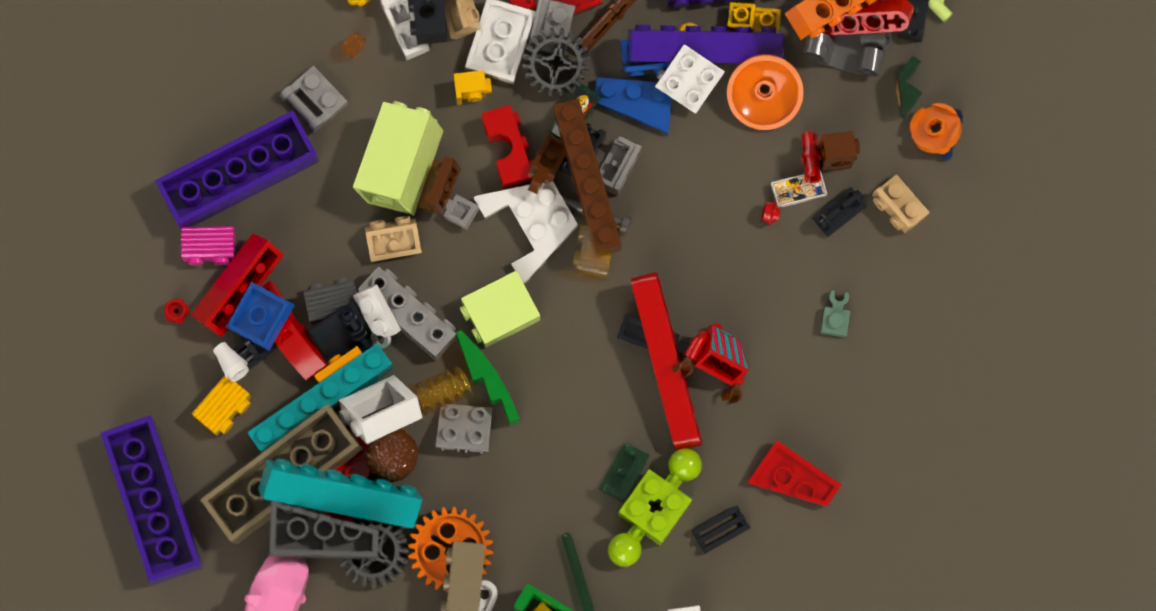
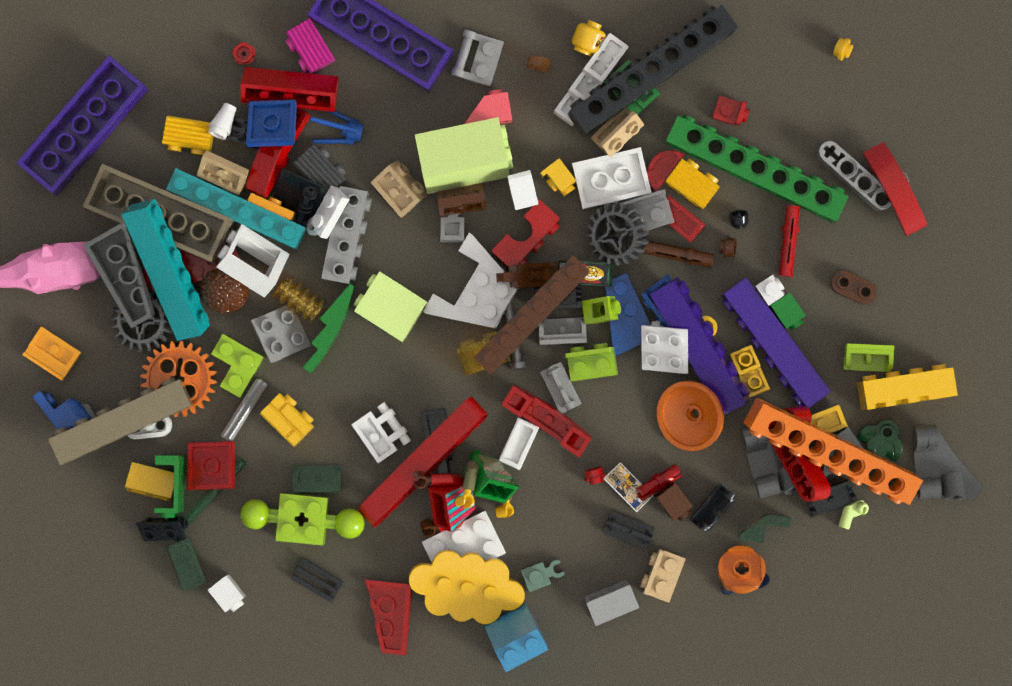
camera: 65 degrees right, 10 degrees up
(278, 391) = (222, 173): none -> tan bracket
(310, 251) = (351, 130): none -> blue plant
(367, 108) = (492, 106): none -> coral slope
(463, 122) = (522, 190): none -> white slope
(469, 480) = (243, 364): none -> lime plate
(517, 505) = (244, 410): none -> light grey axle
(550, 467) = (288, 419): none -> yellow brick
(552, 567) = (211, 465): none -> red plate
(612, 123) = (594, 310): none -> lime brick
(618, 394) = (374, 435): none -> white plate
(663, 155) = (591, 363): none -> lime bracket
(669, 198) = (560, 387): none -> light grey hinge
(693, 224) = (548, 419): none -> red slope
(699, 266) = (518, 443): none -> white tile
(721, 308) = (488, 480): none -> torso
(771, 373) = (473, 536): none -> white plate
(808, 389) = (466, 586): none -> yellow plate
(866, 131) = (718, 500): none -> black hinge
(884, 368) = (516, 637): none -> dark azure slope
(899, 264) = (611, 602): none -> light grey hinge

